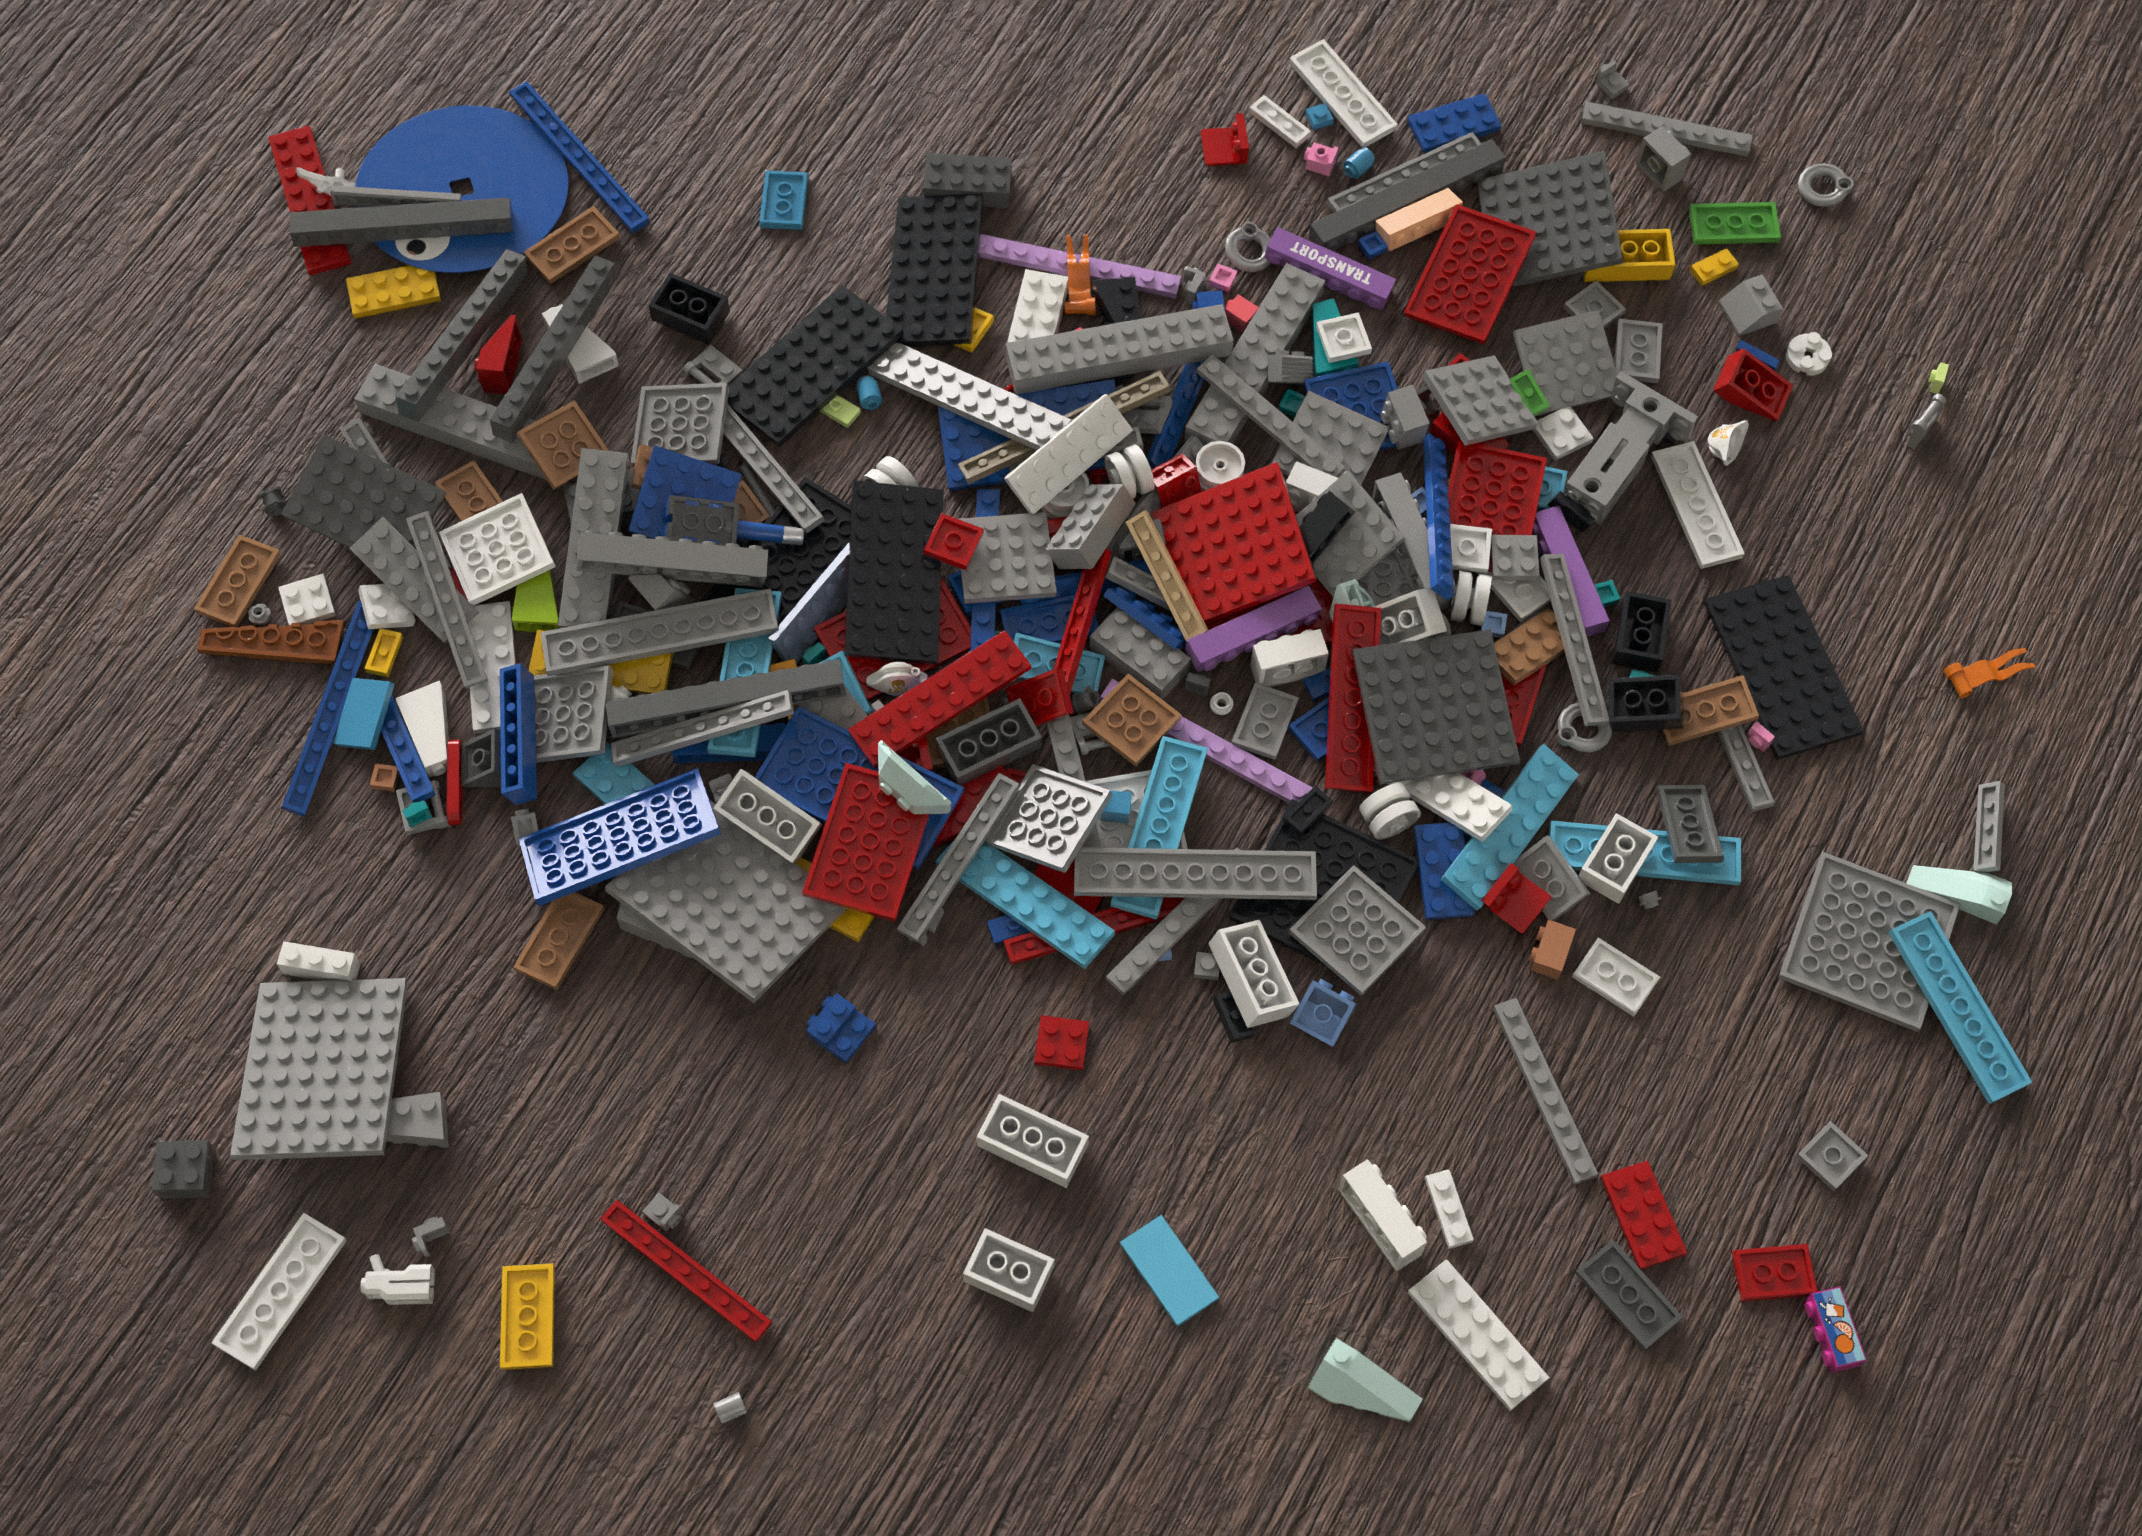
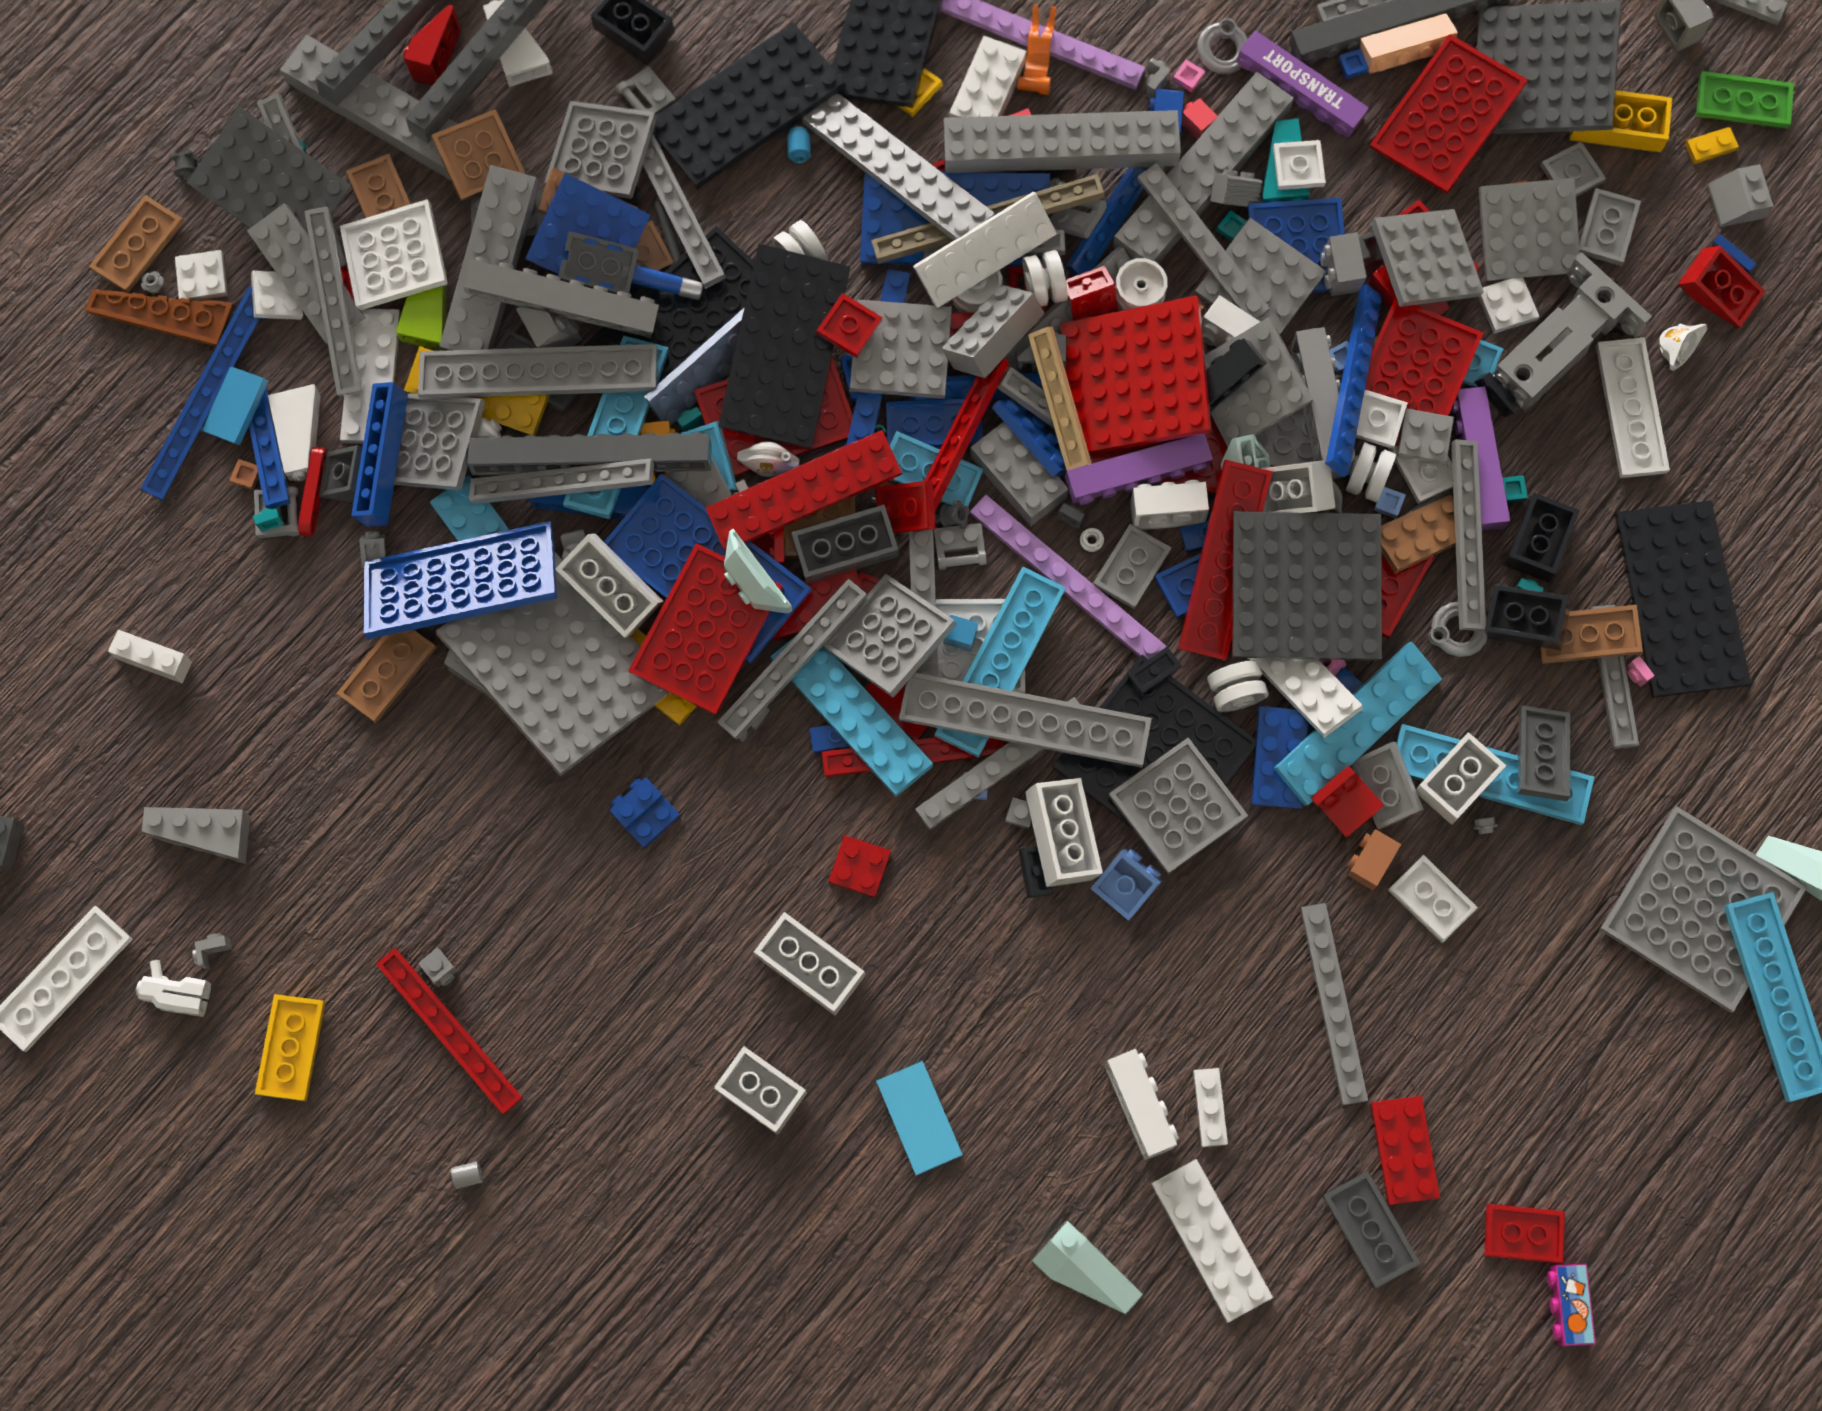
camera: 15 degrees right, 10 degrees up
(320, 1069) = (132, 766): light grey plate -> none
(384, 652) = (266, 343): yellow plate -> none
(841, 411) = (768, 159): yellowish green plate -> none
(1117, 299) = (1073, 85): black wedge -> none
(1132, 719) = (995, 543): medium nougat plate -> none
(1530, 393) = (1482, 256): bright green plate -> none
(1811, 343) = (1799, 250): white plate -> none
(1832, 1156) = (1611, 1126): light grey plate -> none

